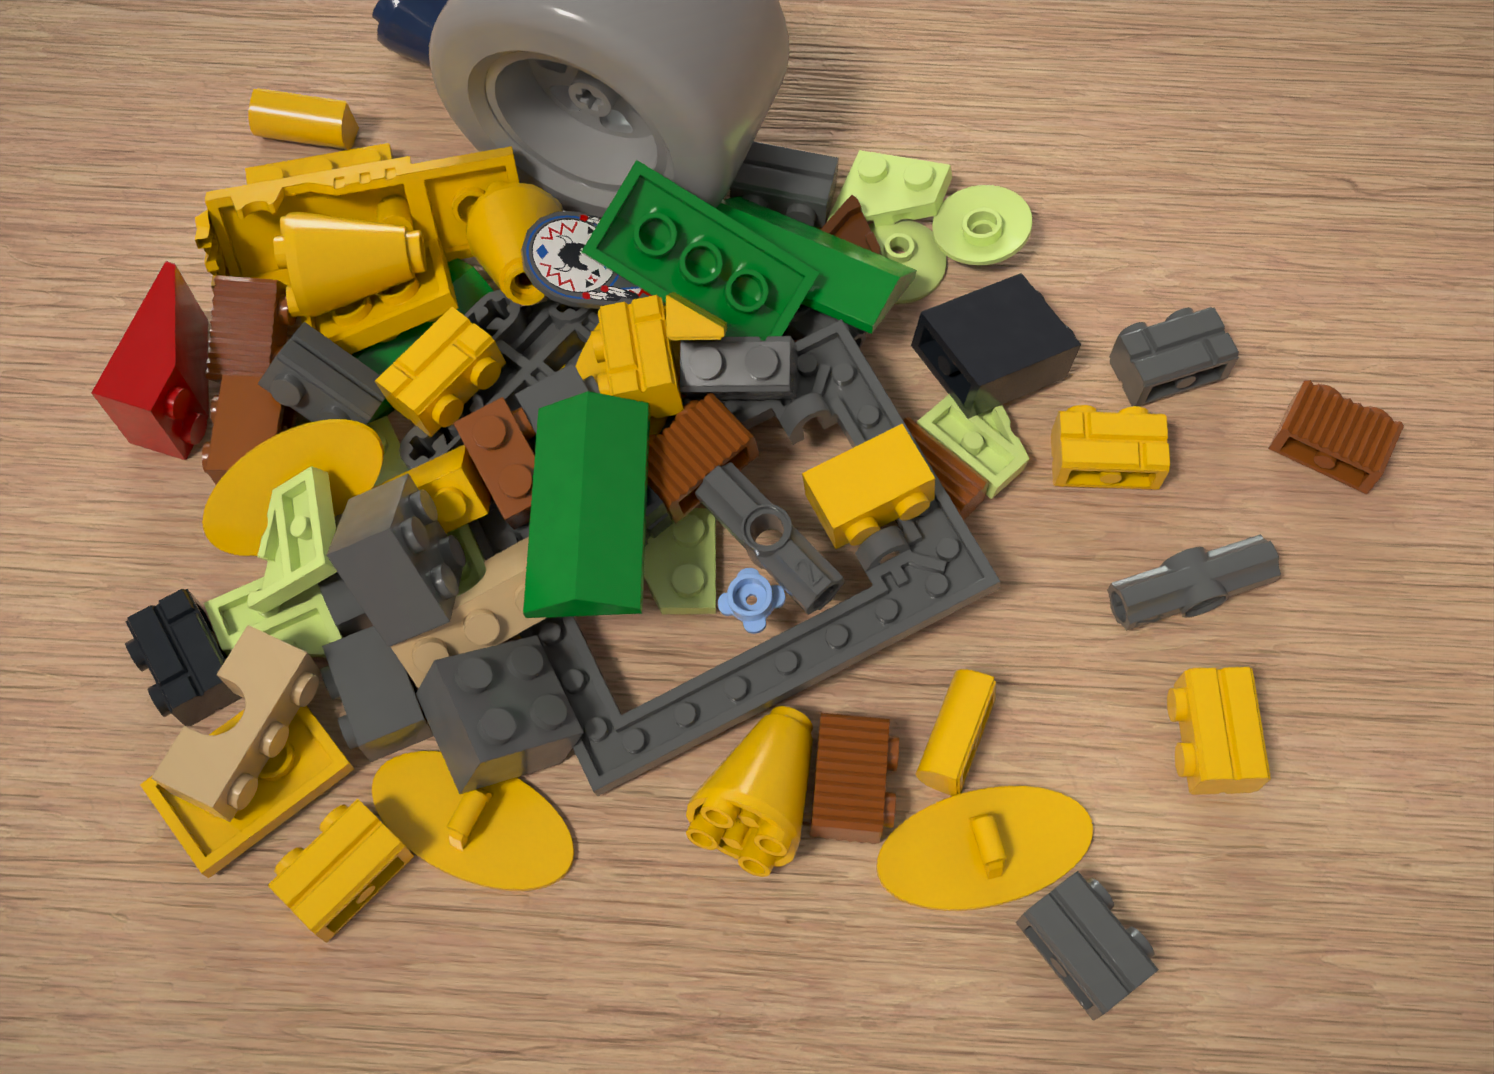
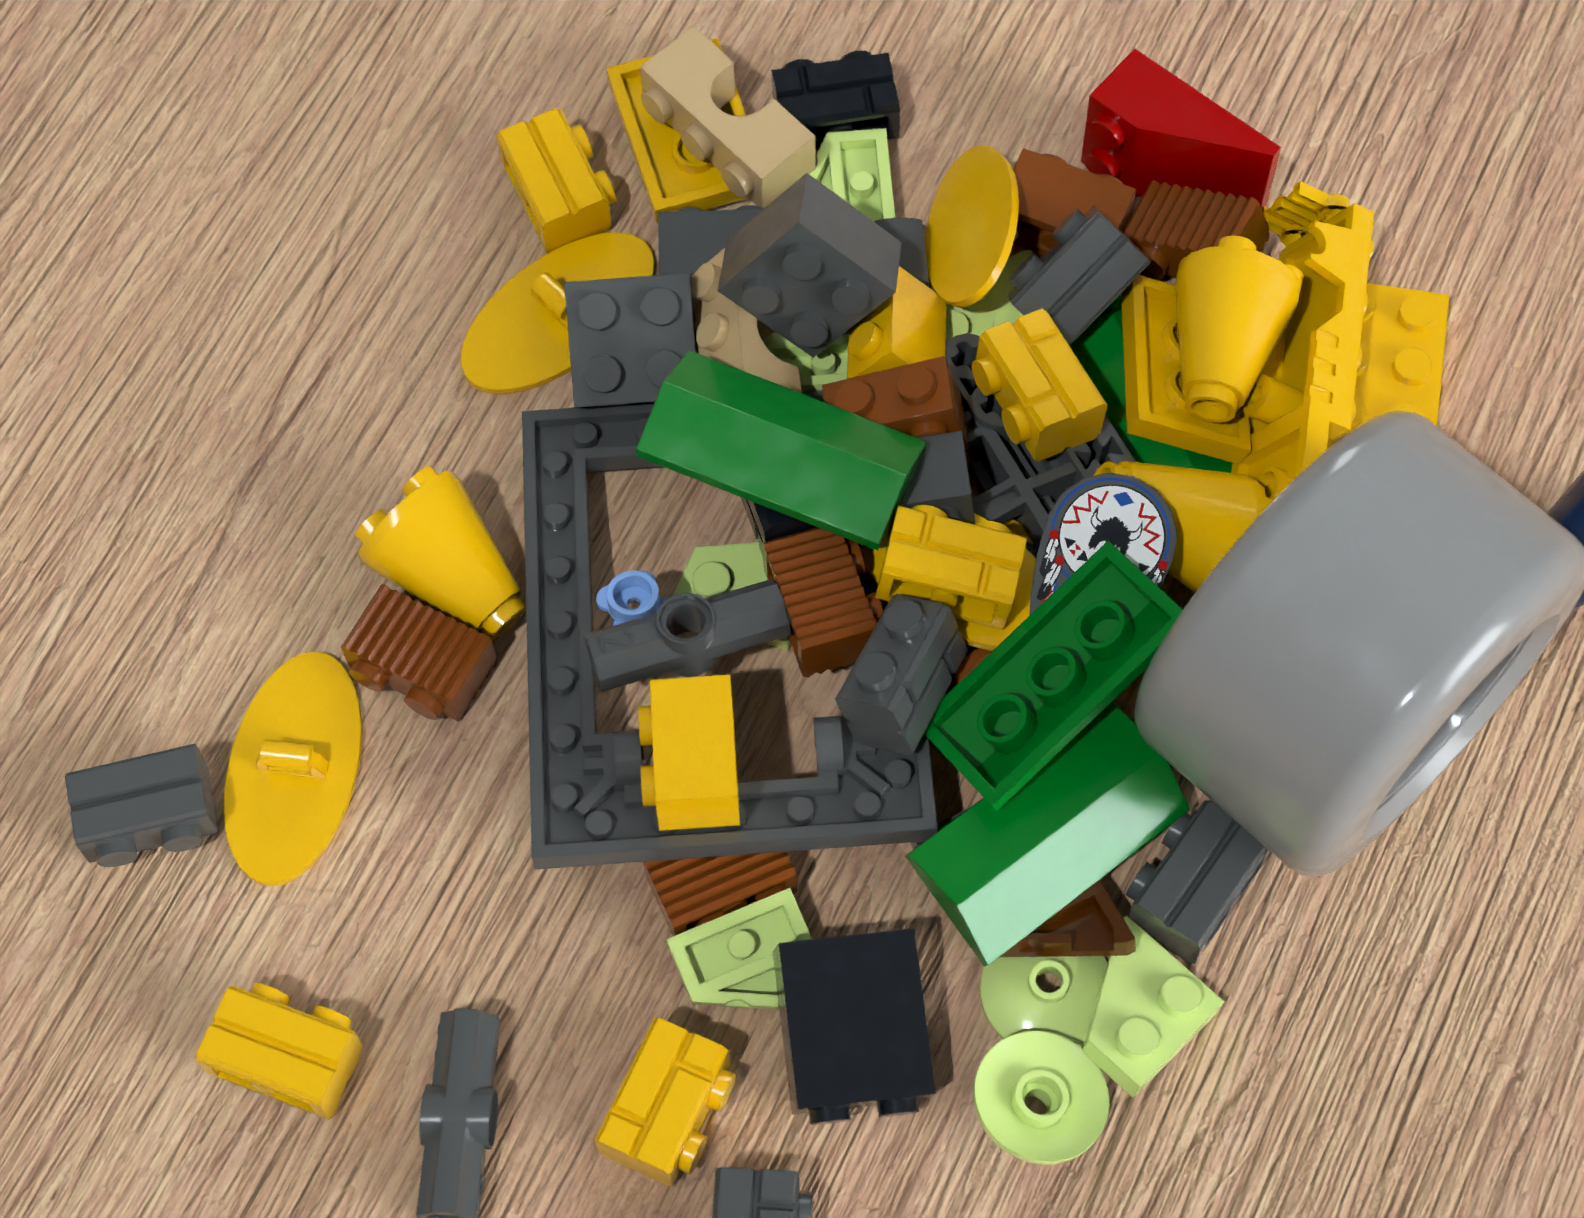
camera: 115 degrees right, 0 degrees up
(296, 539) = (909, 208): yellowish green wing -> none
(302, 119) = (1498, 370): yellow brick -> none
(690, 321) = (959, 618): yellow slope -> none
(957, 731) = (415, 782): yellow brick -> none

